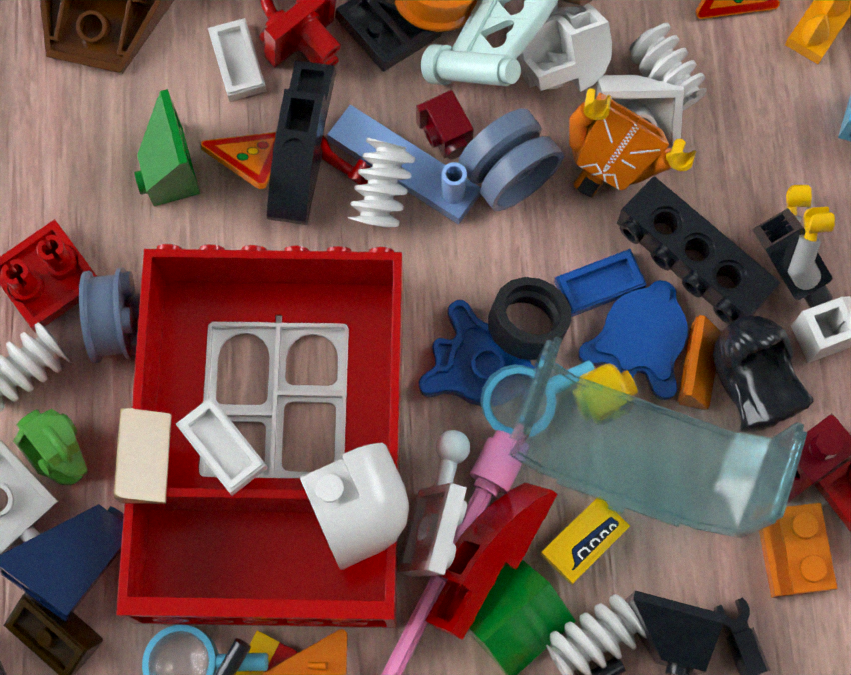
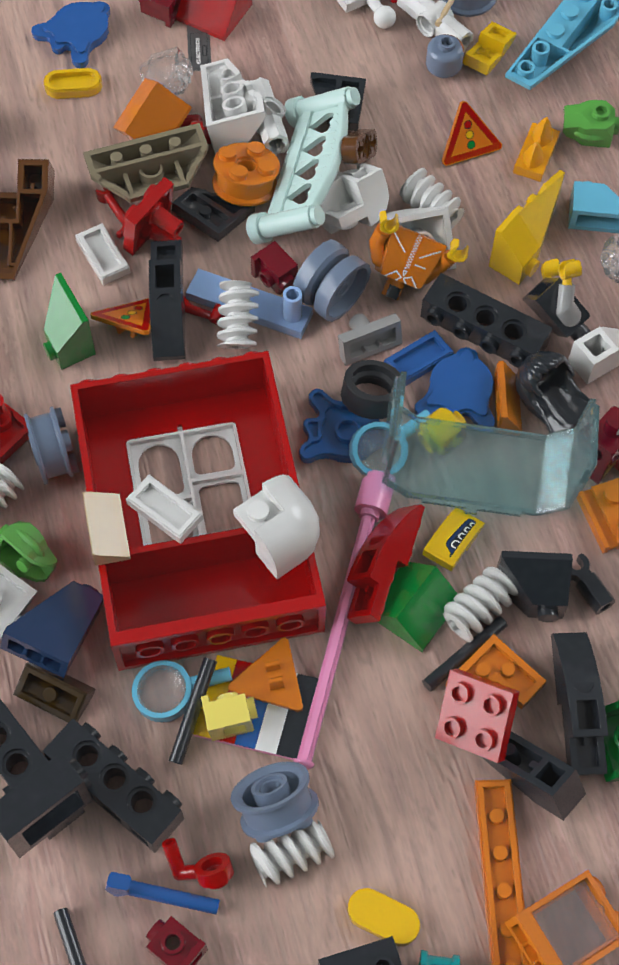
camera: 15 degrees left, 10 degrees down
(437, 513) = (338, 536): white plate -> none
(542, 243) = (369, 338): none -> light grey tile
(772, 144) = (523, 233): none -> yellow wedge

